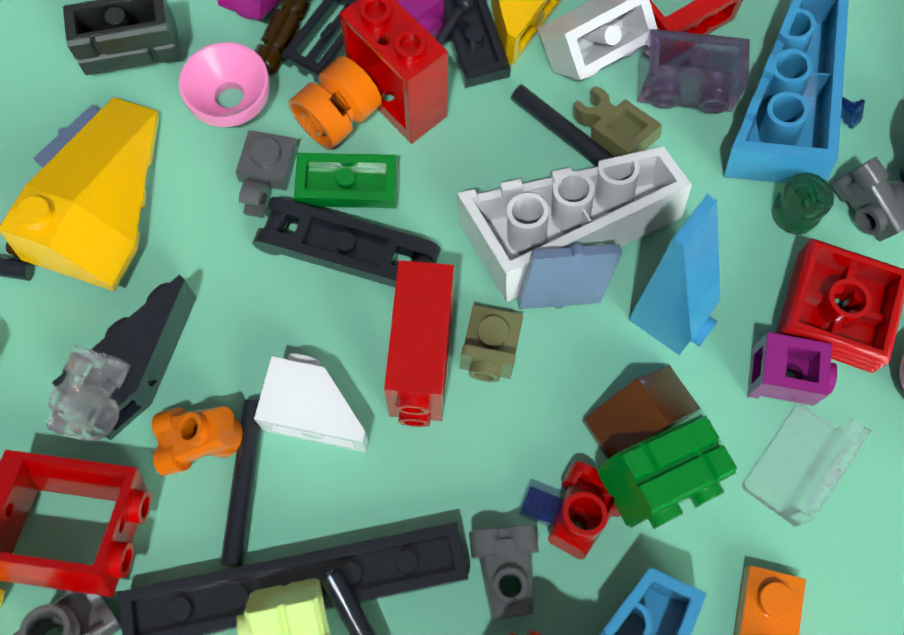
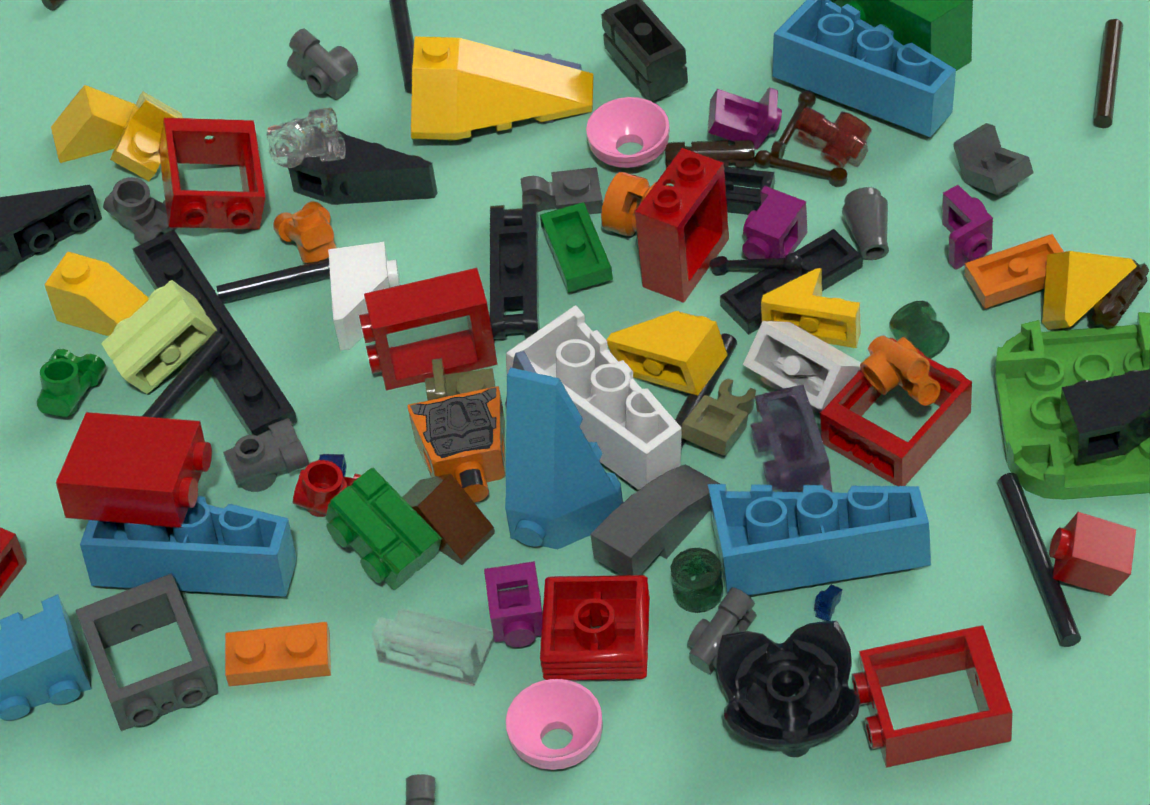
camera: 80 degrees right, 20 degrees down
(536, 130) = (671, 350): none -> yellow slope
(566, 360) = (463, 438): none -> torso
(747, 228) = (652, 521): none -> dark grey slope

